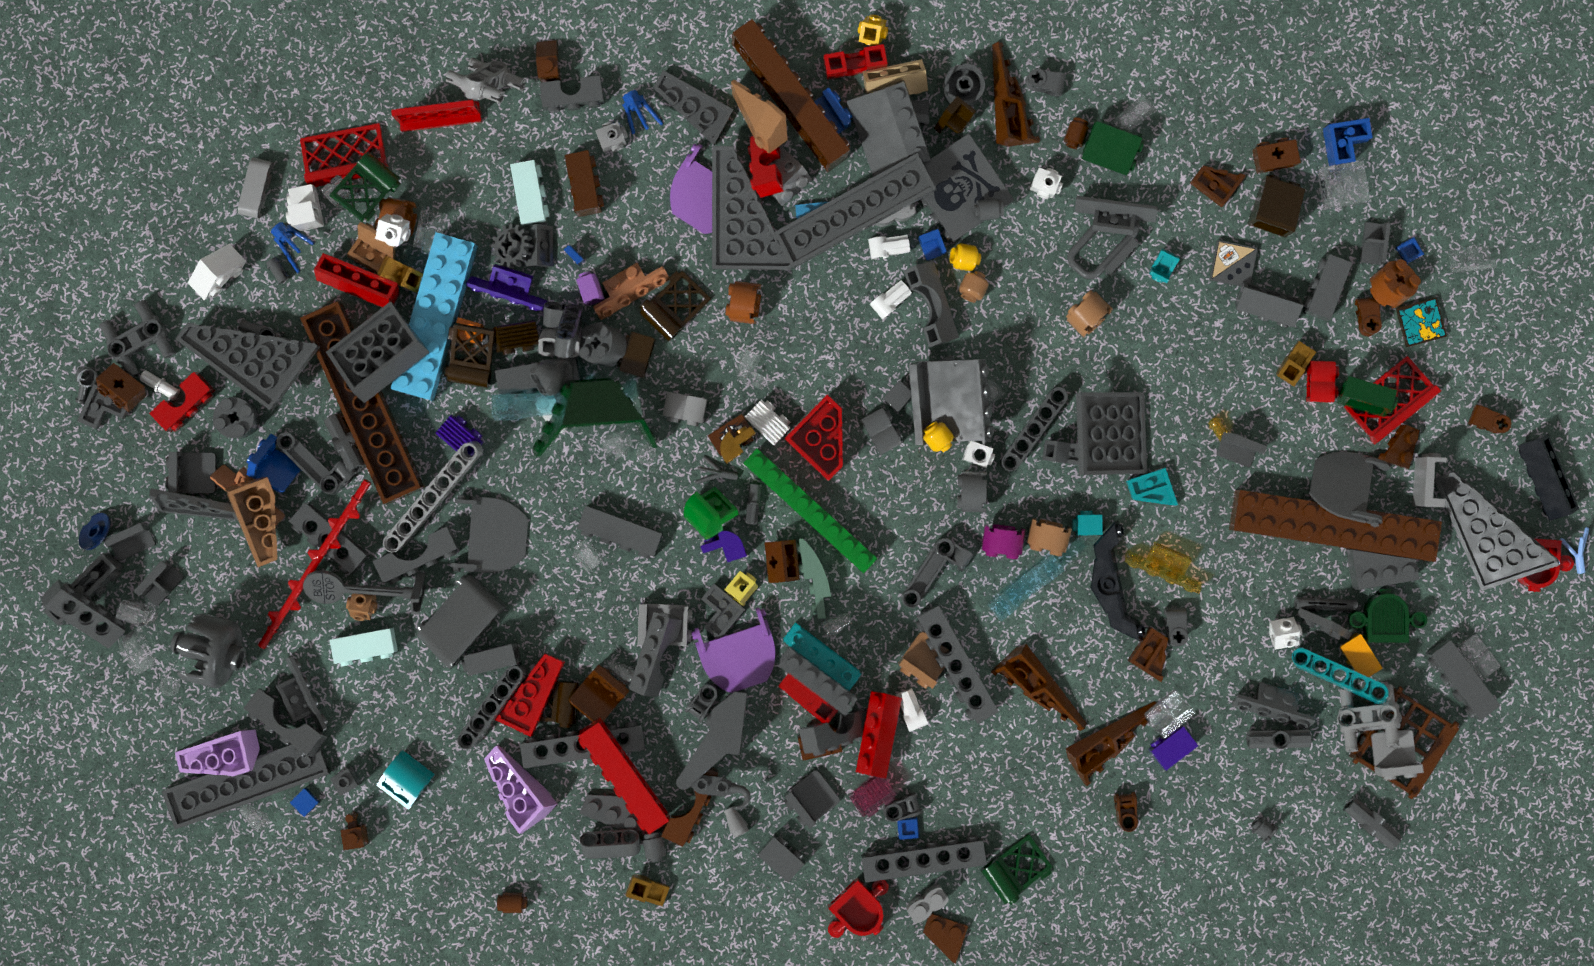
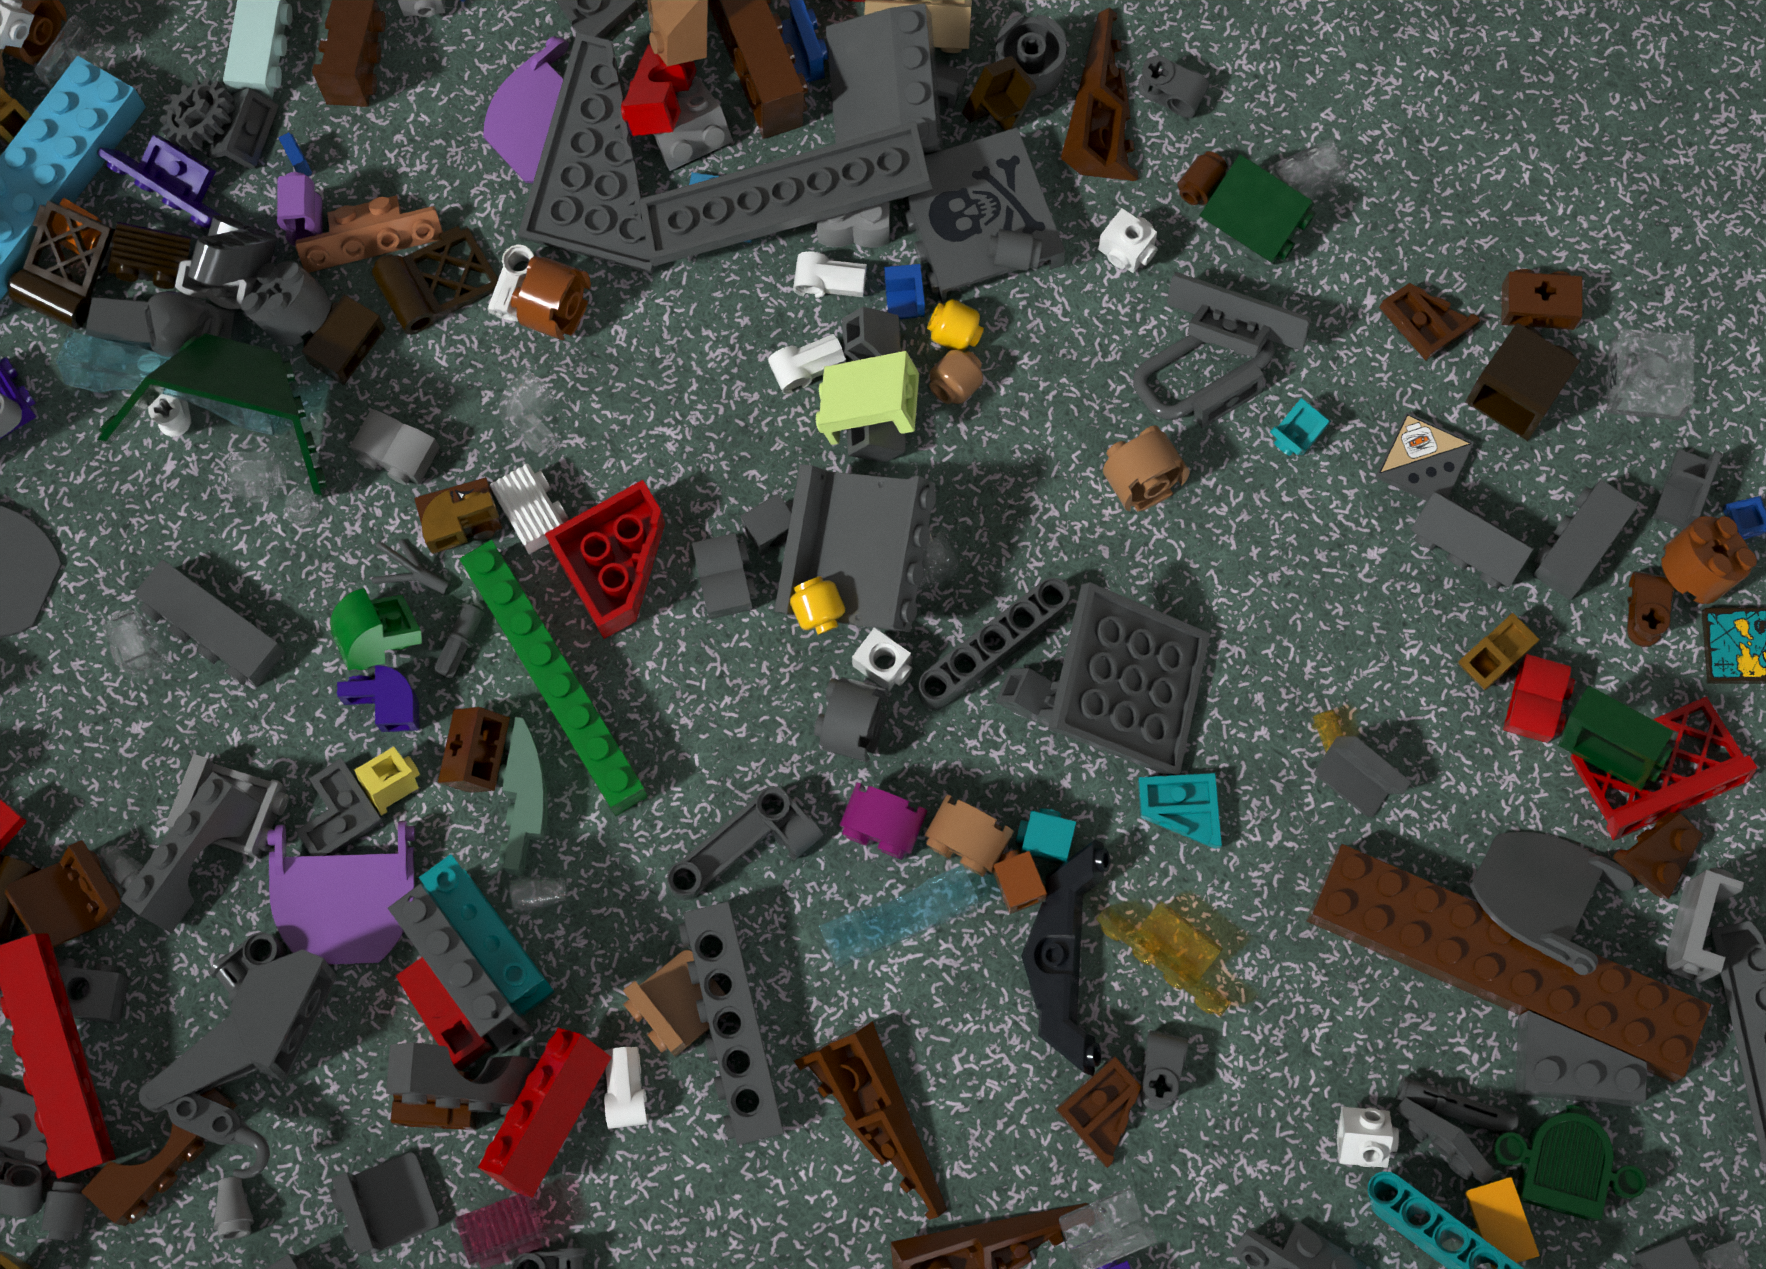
camera: 20 degrees right, 15 degrees down
(718, 300) = (508, 281): none -> white piece
(931, 313) = (868, 394): none -> yellowish green panel
(1080, 552) = (1018, 881): none -> dark orange brick
(1341, 137) = (1670, 293): blue brick -> none

